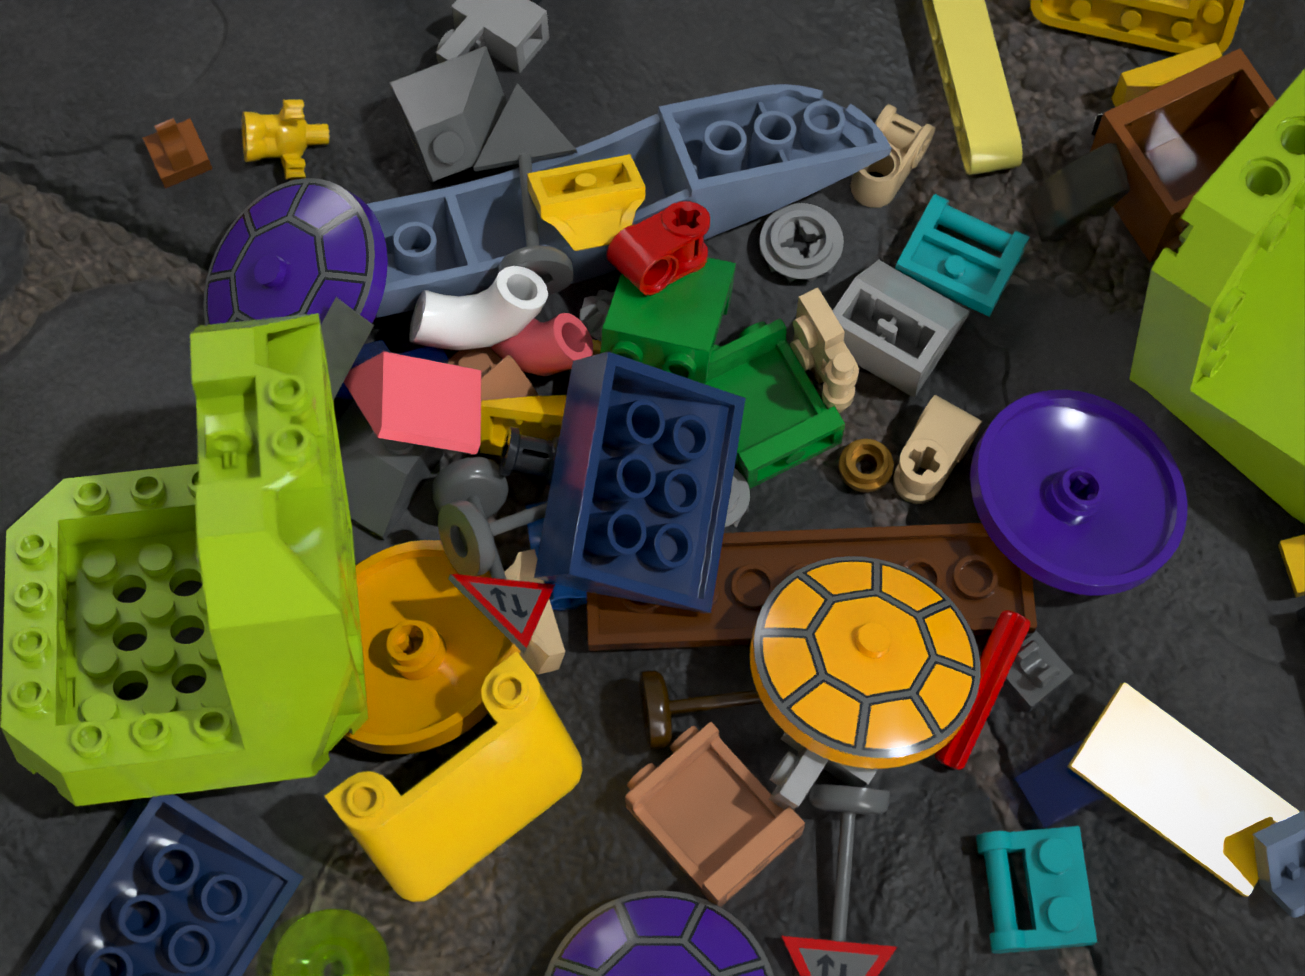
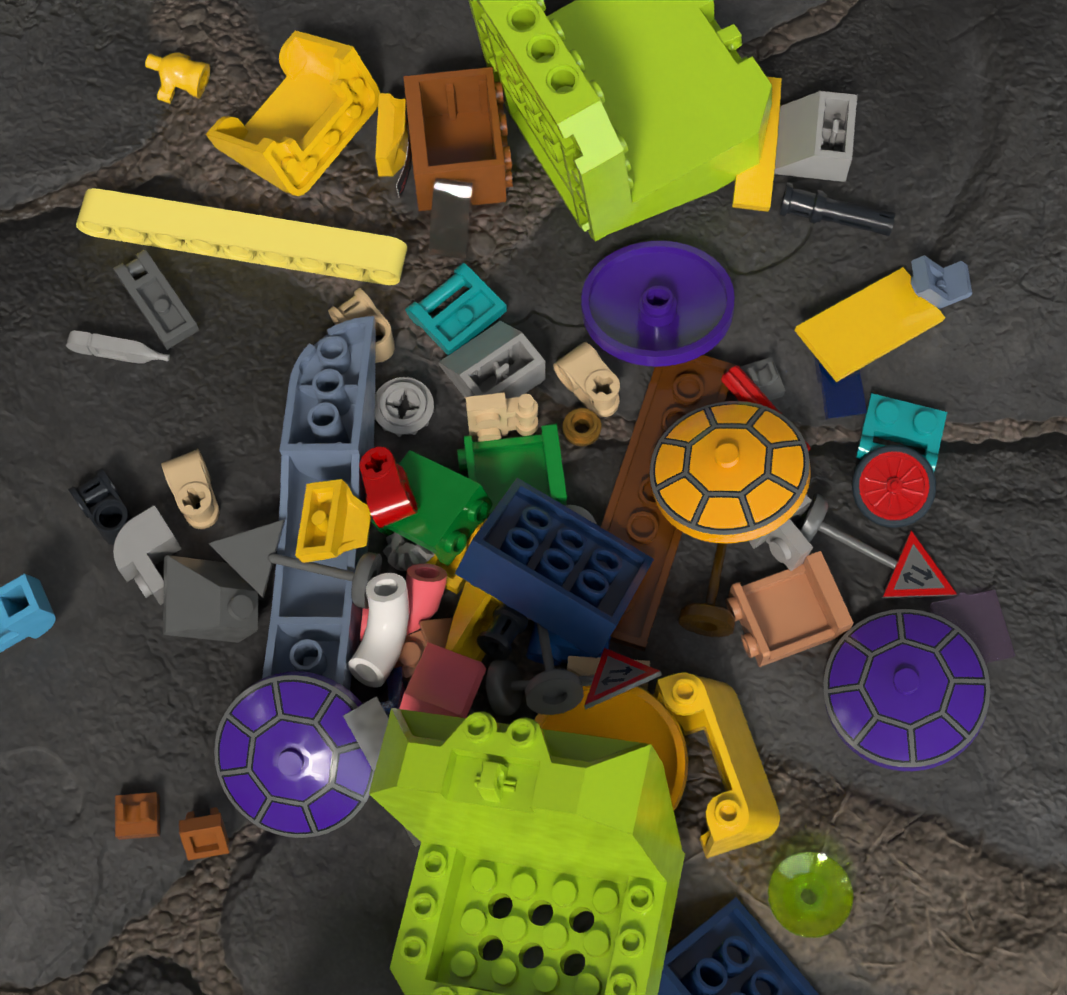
camera: 70 degrees left, 0 degrees up
(173, 227) = (204, 835): none -> dark orange tile
(282, 137) = (162, 733): yellow piece -> none
(592, 49) = (191, 485): none -> tan piece
(952, 901) = (894, 486): none -> red wheel

